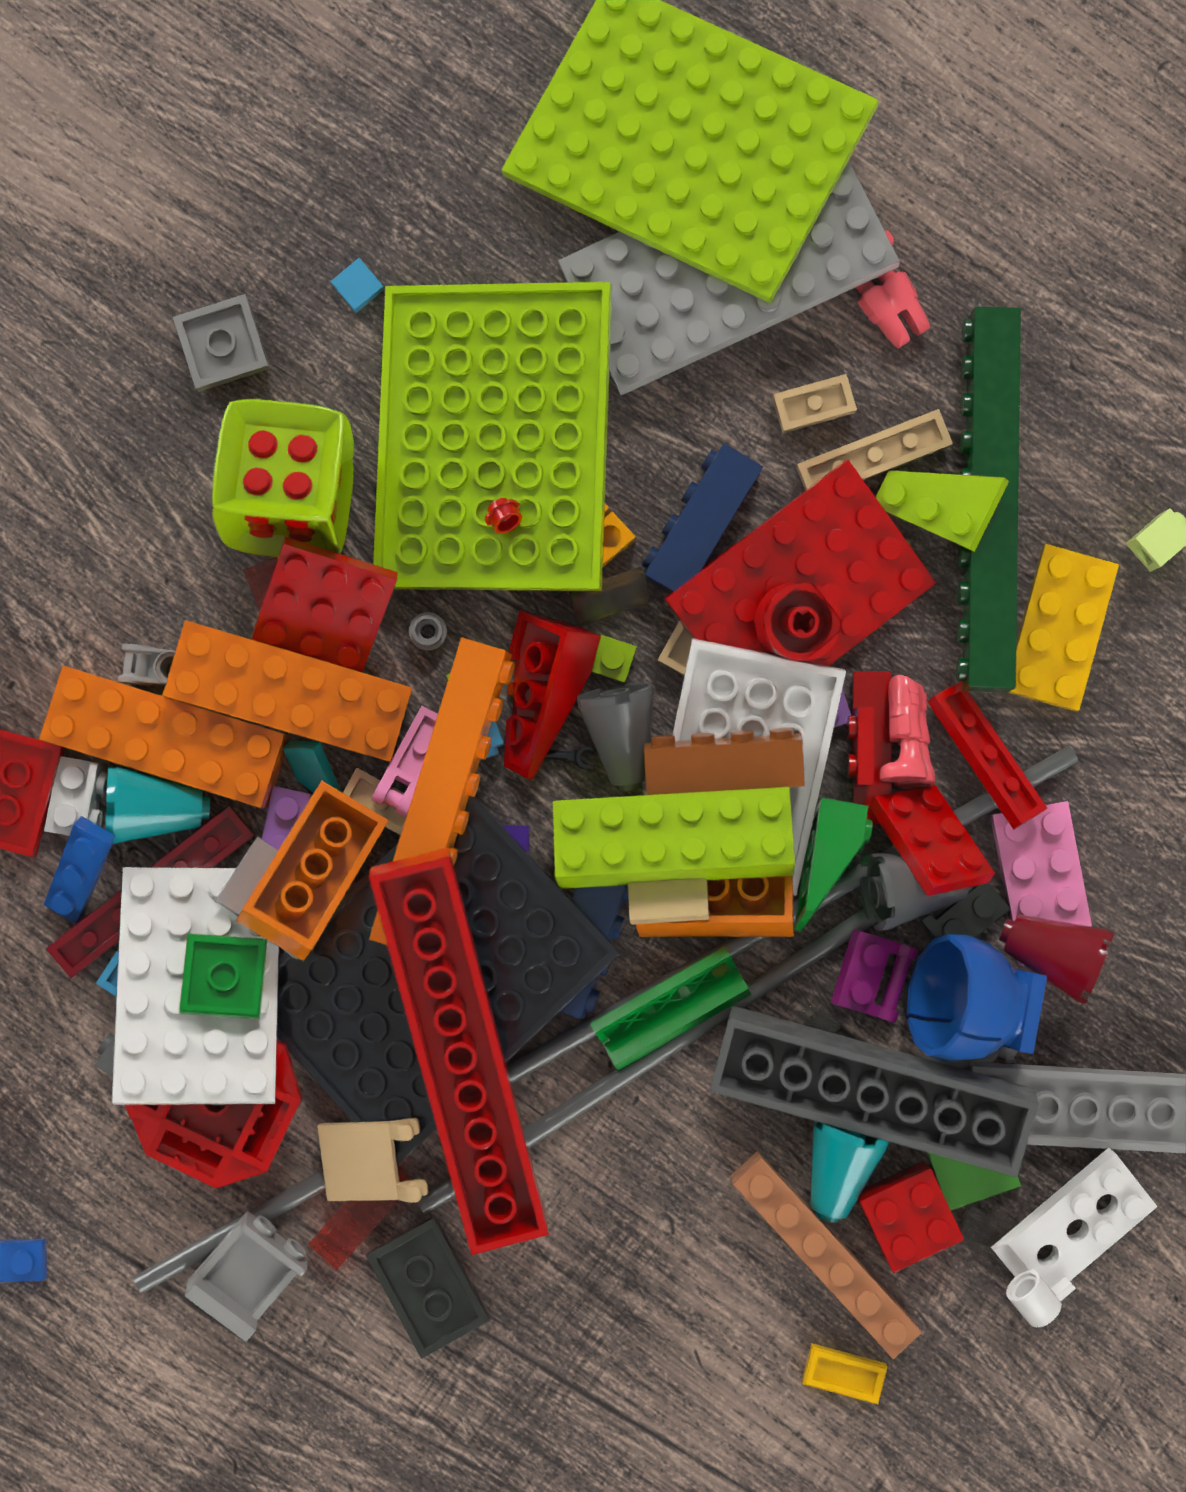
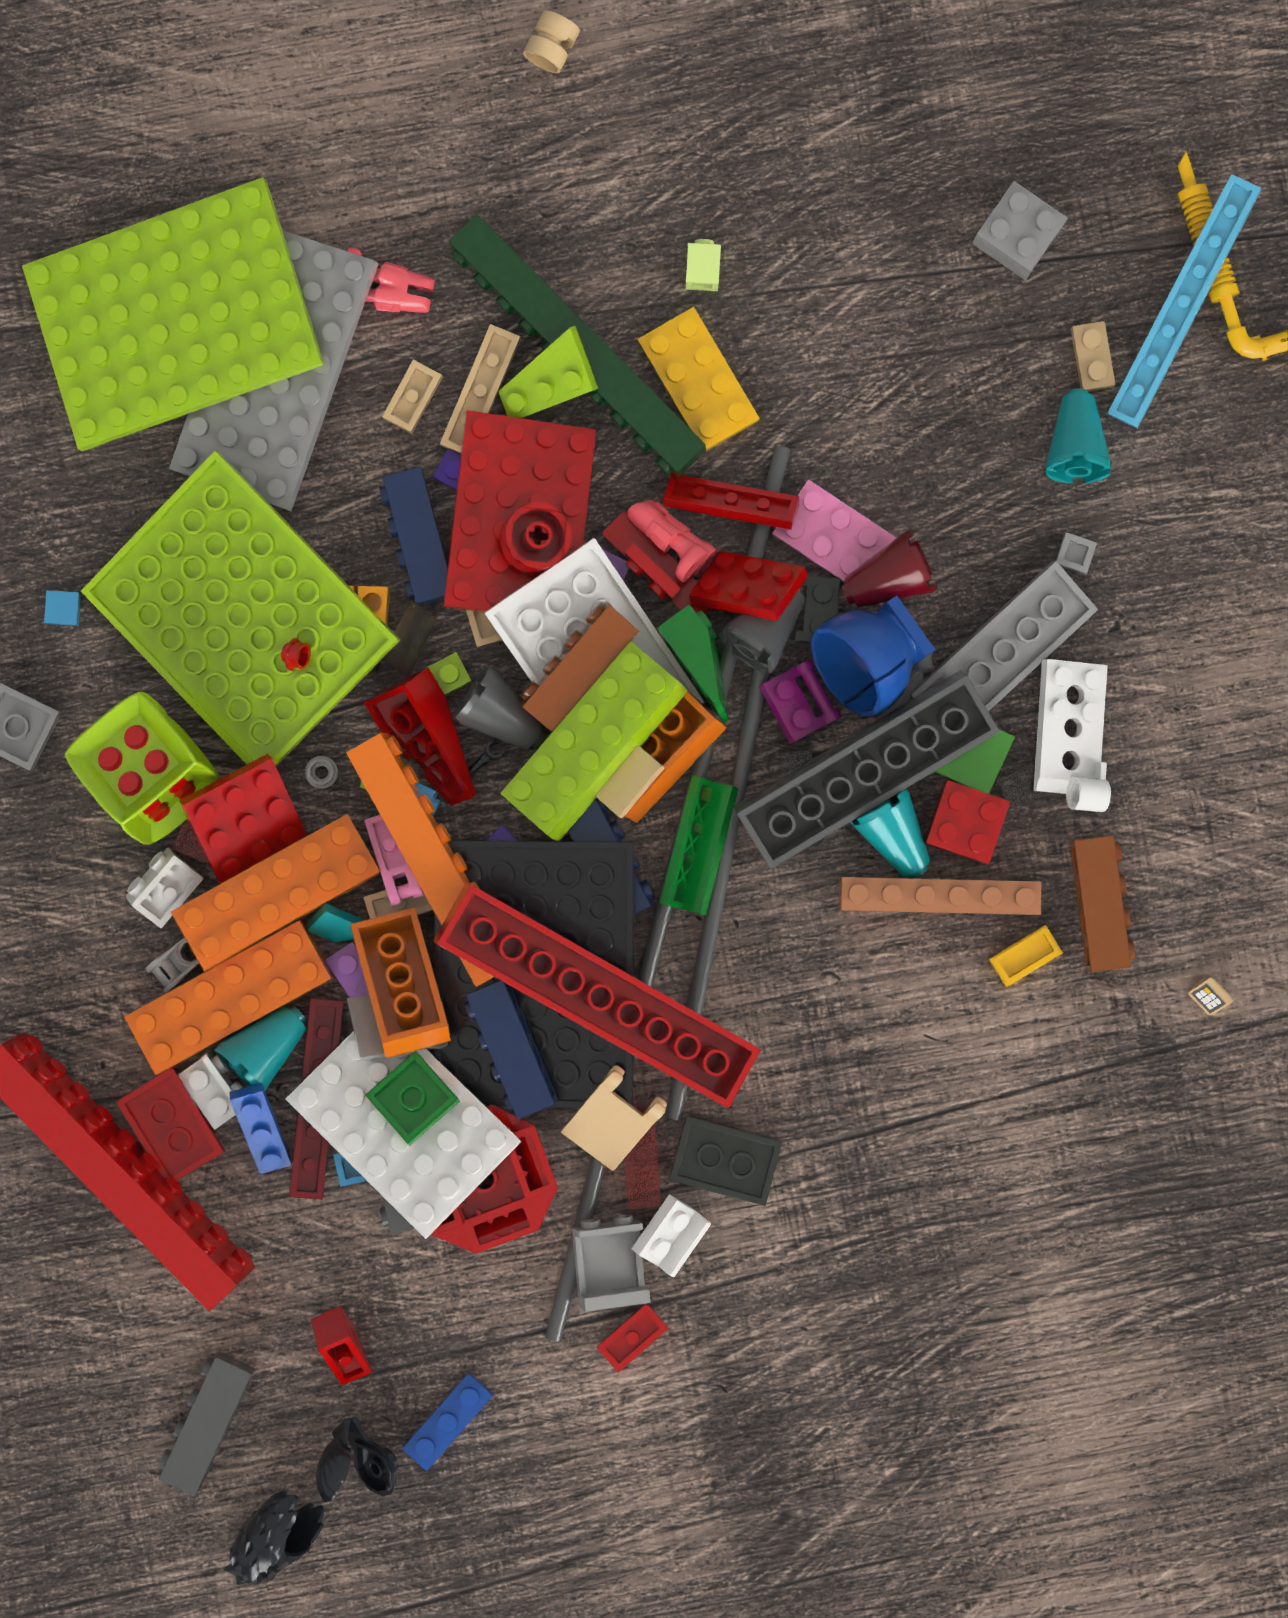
camera: 45 degrees left, 0 degrees up
(203, 1351) = (632, 1337): none -> red plate
(205, 592) = (163, 887): none -> white bracket
(320, 1303) = (671, 1235): none -> white bracket
(346, 1019) = (511, 1048): none -> dark blue brick
(782, 492) = (448, 469): none -> dark purple plate
(950, 1398) = (1101, 904): none -> dark orange brick

